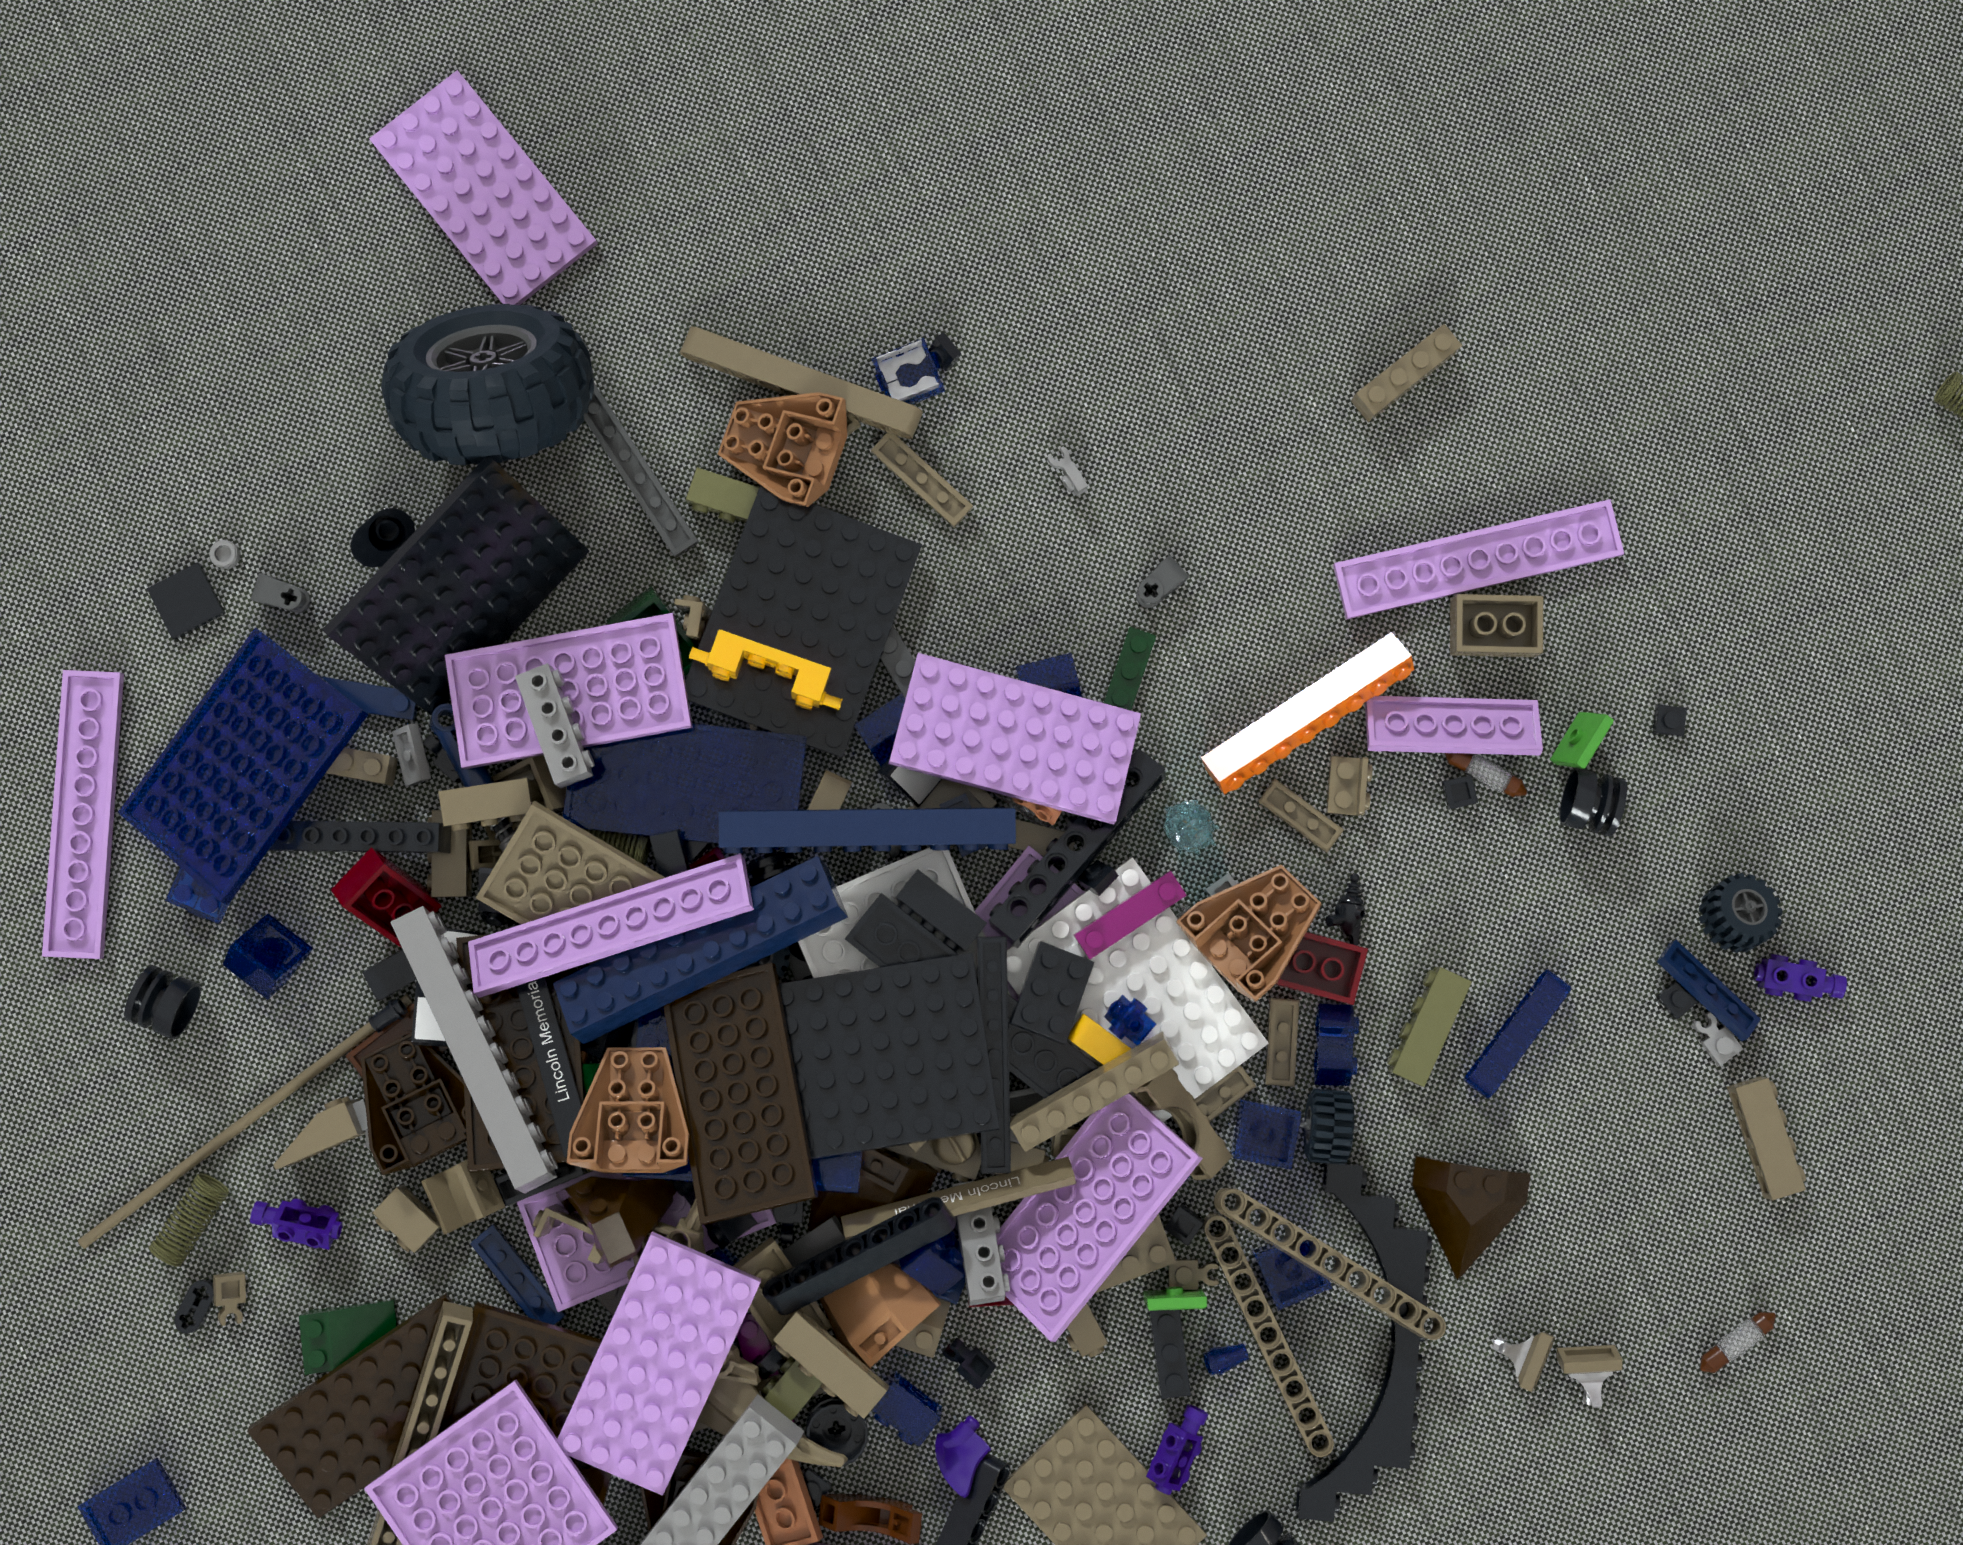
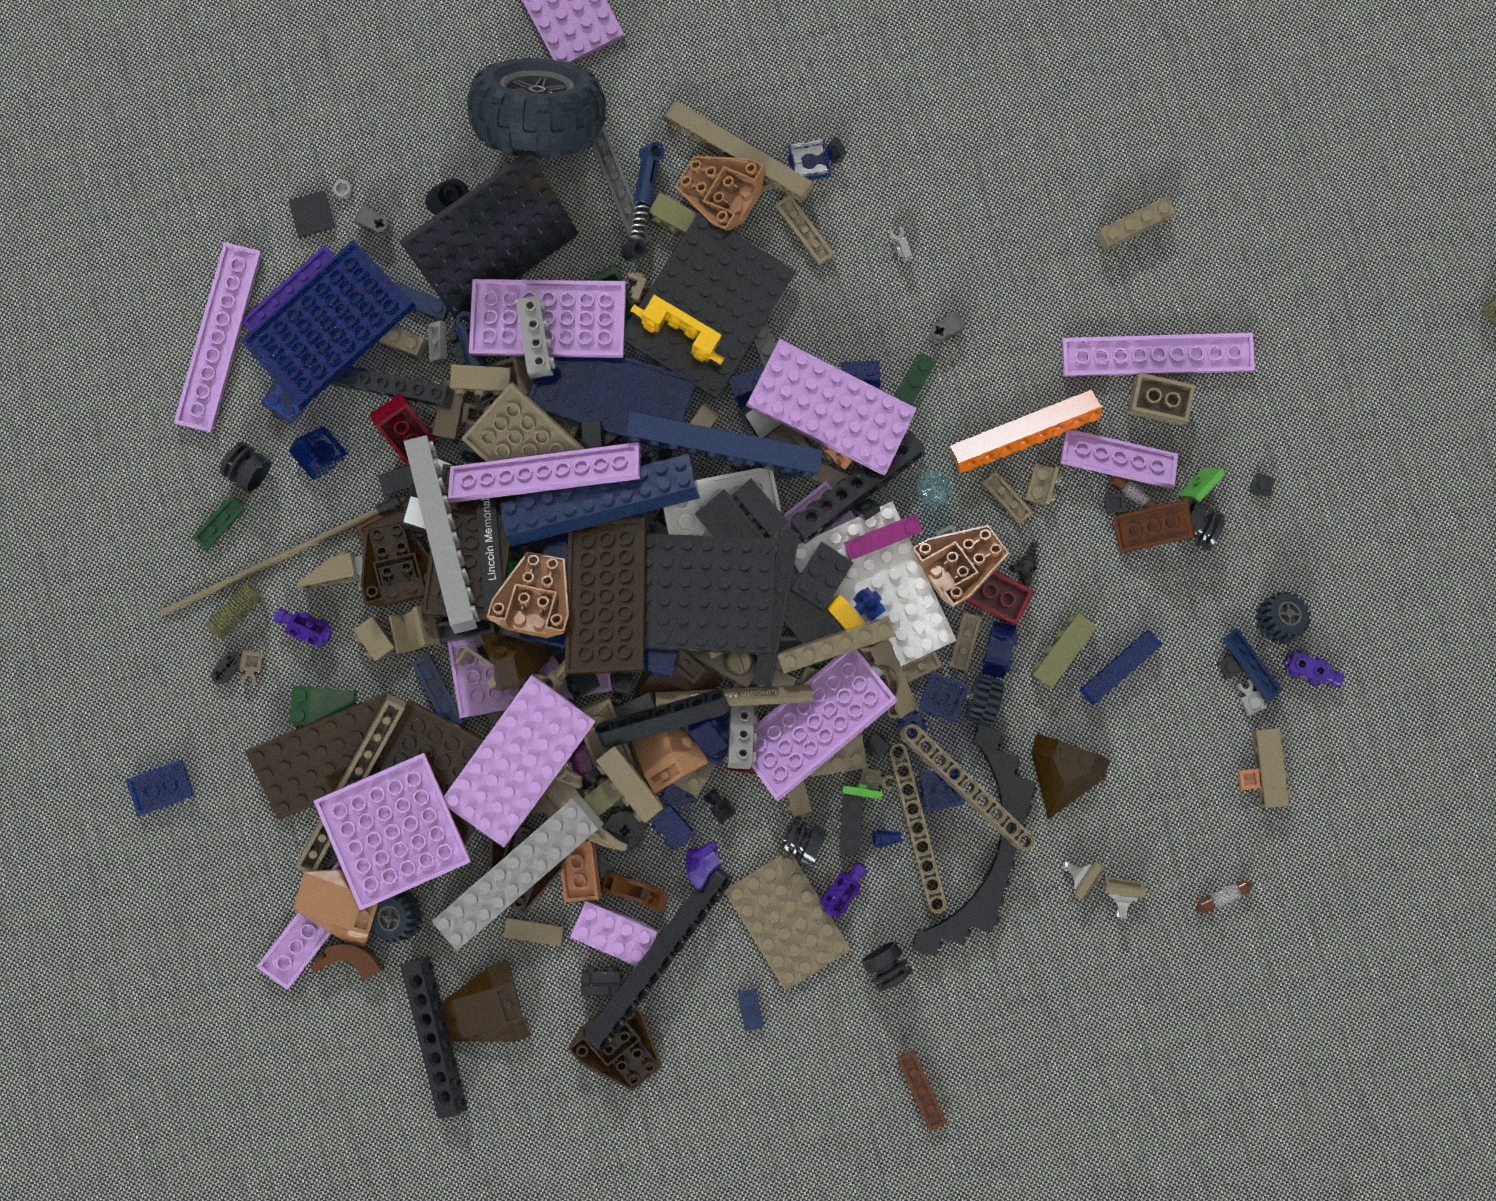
camera: 15 degrees right, 0 degrees up
(140, 1091) = (219, 522): none -> dark green plate
(172, 718) = (288, 287): none -> dark purple tile
(674, 482) = (650, 158): none -> piece
(902, 1361) = (675, 795): none -> clear blue plate
(1104, 1392) = (803, 842): none -> black wheel
(1229, 1171) = (912, 716): none -> clear blue brick
(1525, 817) = (1154, 526): none -> reddish brown tile
(1739, 1160) = (1249, 779): none -> nougat plate

